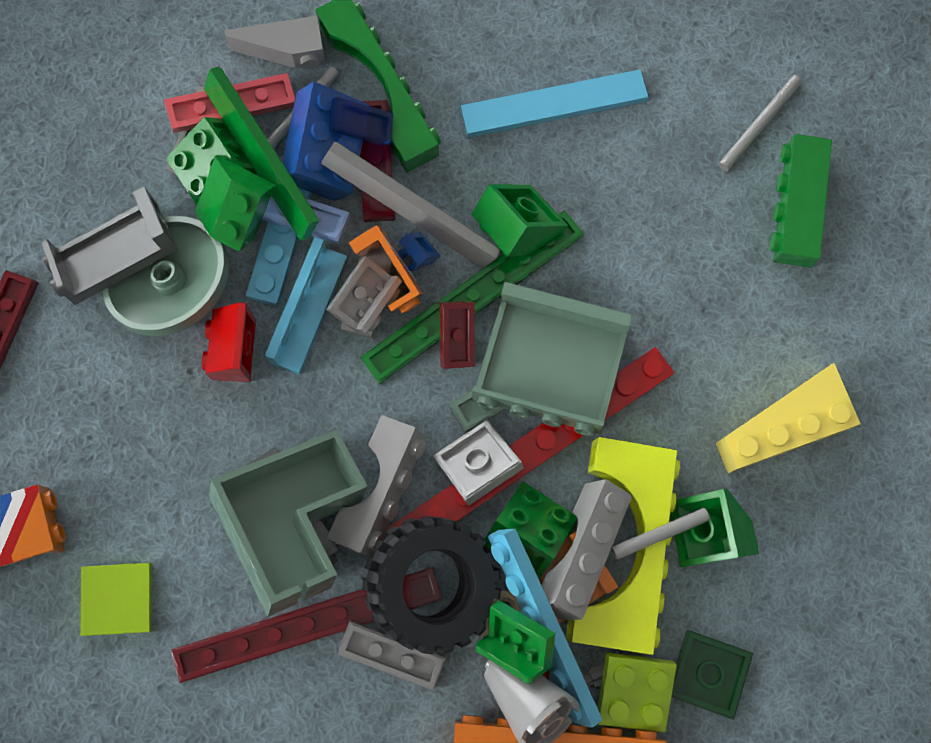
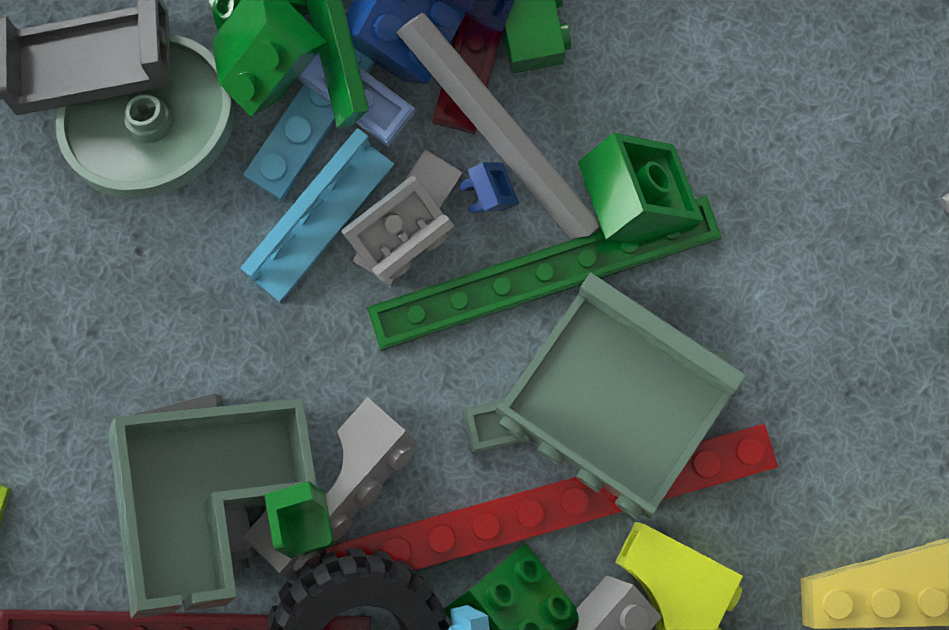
camera: 20 degrees right, 5 degrees up
(230, 343) = (201, 235): red slope -> none
(362, 510) = (299, 520): none -> green panel
(378, 237) = (447, 163): orange panel -> none
(457, 334) = (504, 320): dark red plate -> none
(478, 462) = (474, 501): light grey tile -> none
(554, 103) = (744, 41): medium azure tile -> none

